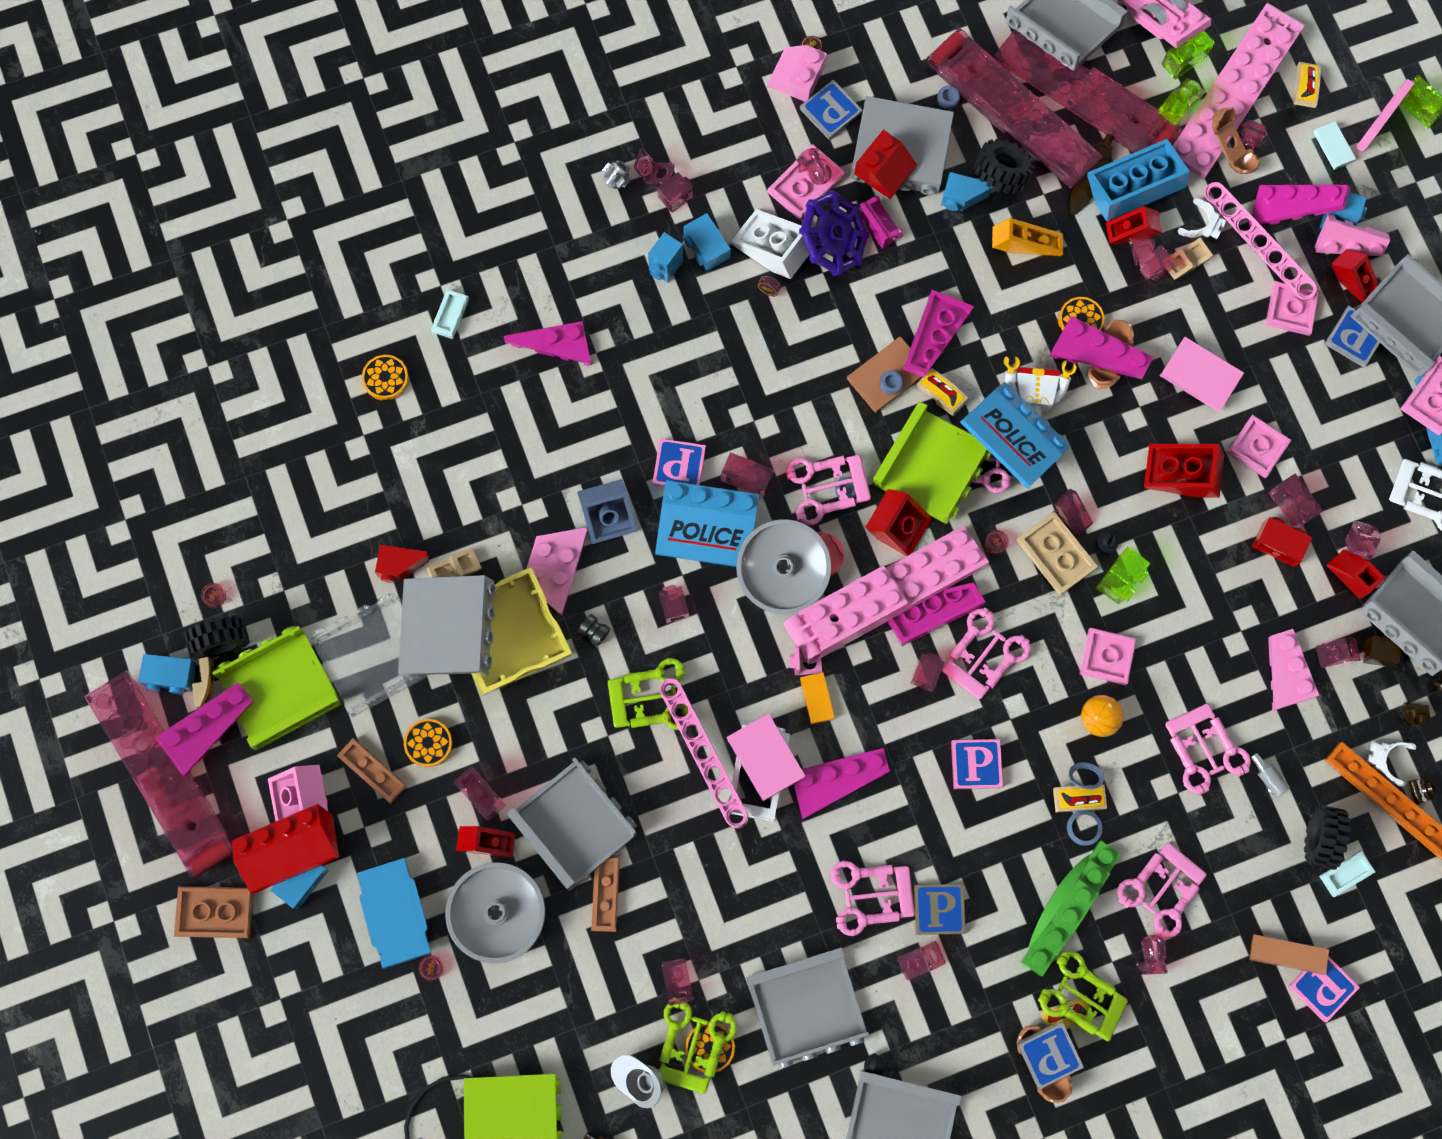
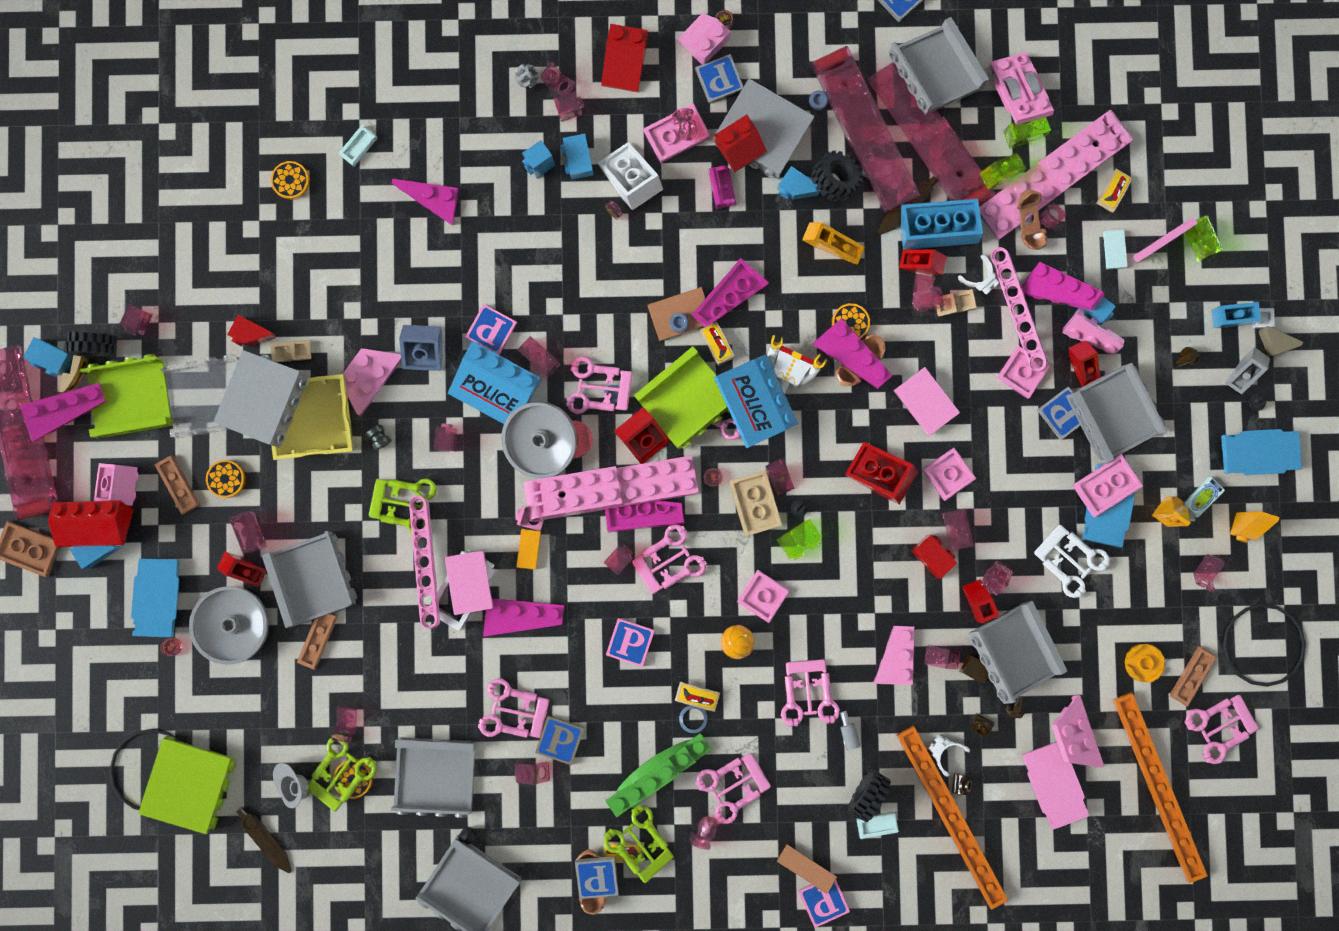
camera: 25 degrees right, 10 degrees up
(213, 595) = (104, 308): clear pink tile -> none
(257, 595) = (135, 320): none -> clear pink brick
(718, 120) = (624, 57): none -> red slope
(824, 233) = (669, 182): dark purple plate -> none
(1086, 766) = (712, 672): sand blue piece -> none

